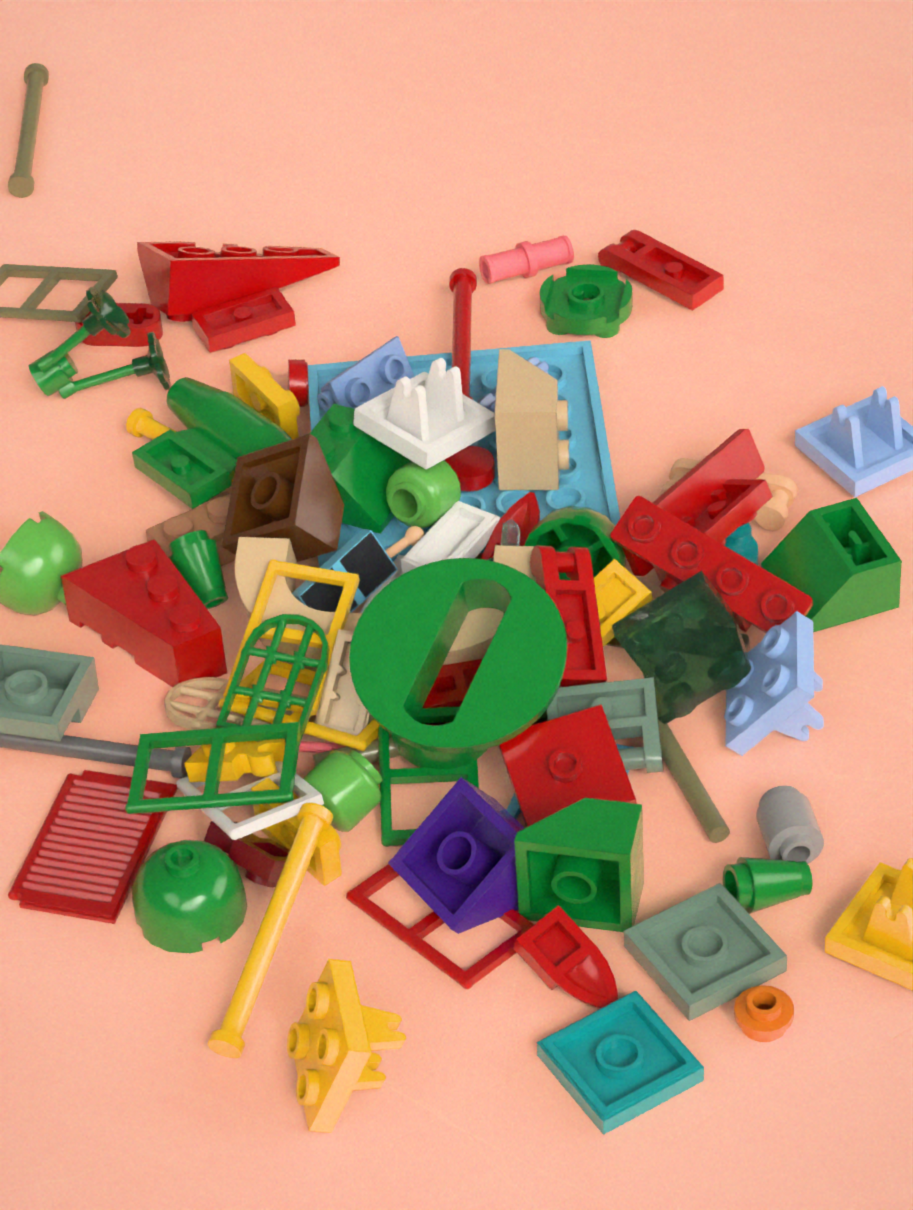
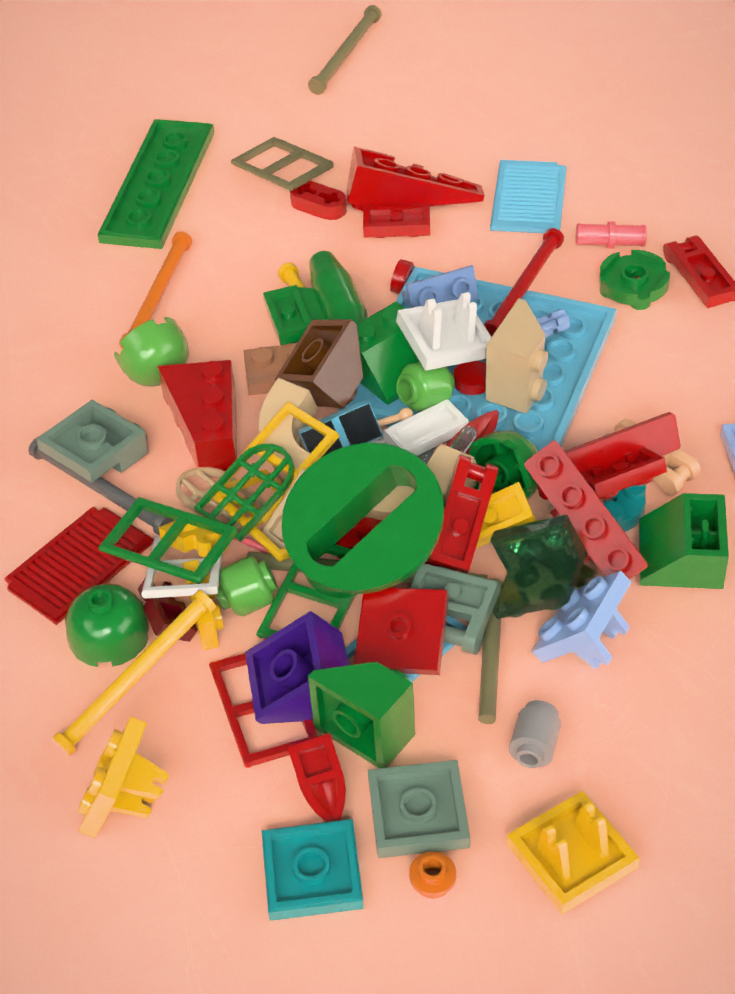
camera: 25 degrees right, 5 degrees up
(55, 369) = (290, 192): plant -> none
(200, 566) = (254, 386): green cone -> none
(260, 391) = (374, 272): yellow plate -> none
(390, 245) = (528, 196): none -> medium azure window
(766, 882) = (493, 772): green cone -> none

